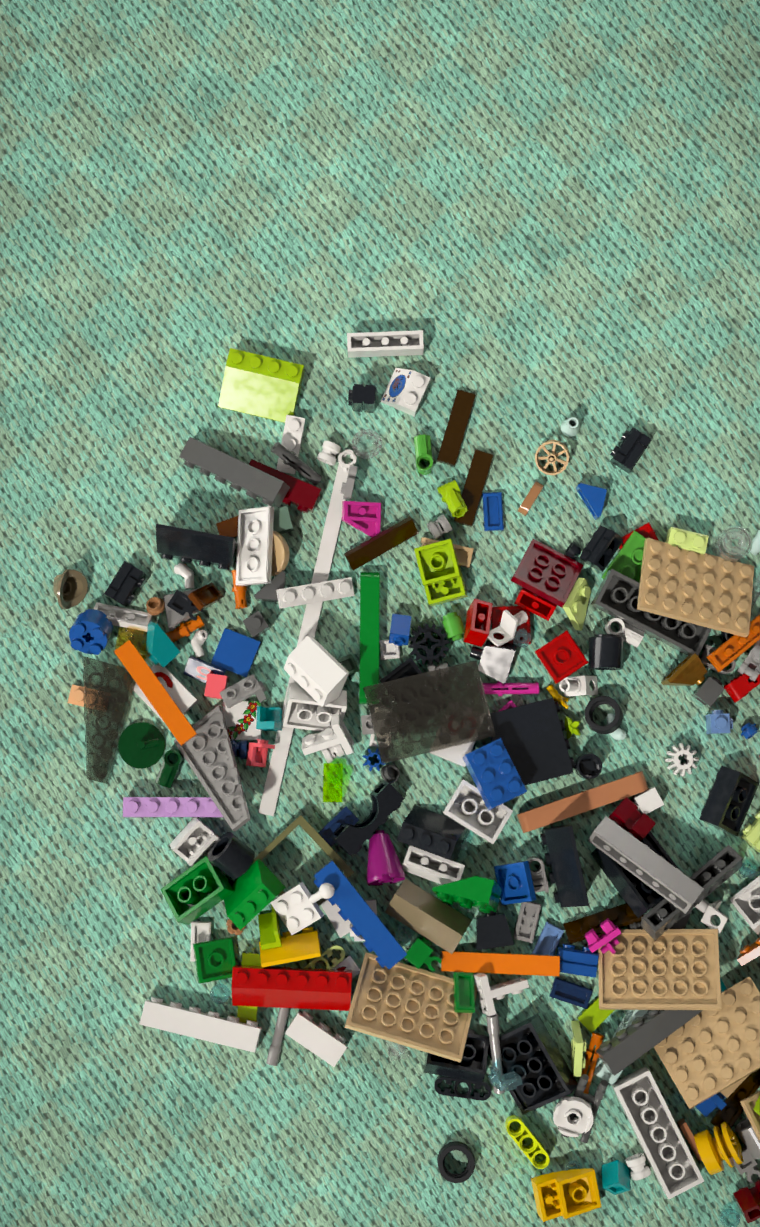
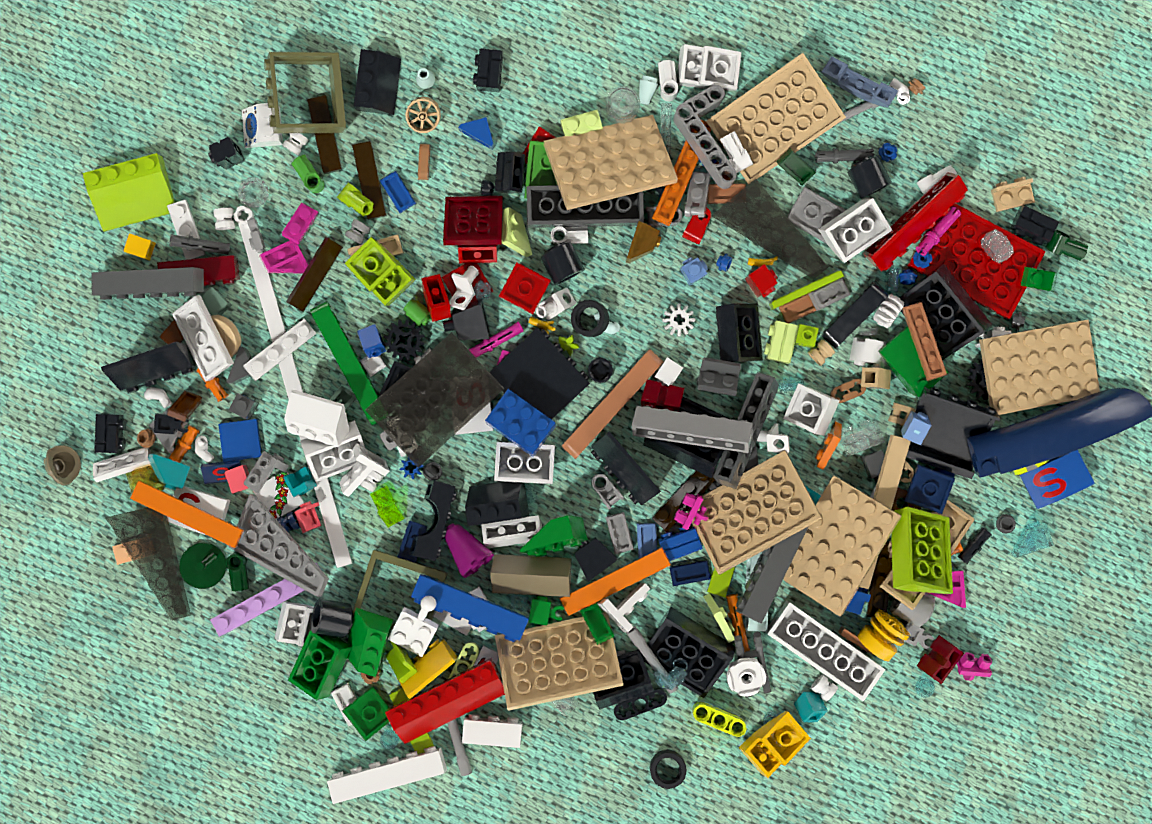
camera: 25 degrees left, 5 degrees up
(90, 632) = (101, 492): blue brick -> none
(242, 437) = (139, 246): none -> yellow panel
(385, 344) = (219, 93): white brick -> none
(393, 492) = (299, 223): none -> dark pink plate
(424, 422) = (292, 145): none -> white wheel
(498, 370) = (306, 58): none -> olive window
(515, 882) = (590, 506): blue plate -> none
(527, 408) = (377, 82): none -> black slope
(692, 829) = (718, 376): none -> dark grey bracket
(708, 691) = (670, 247): dark grey brick -> none

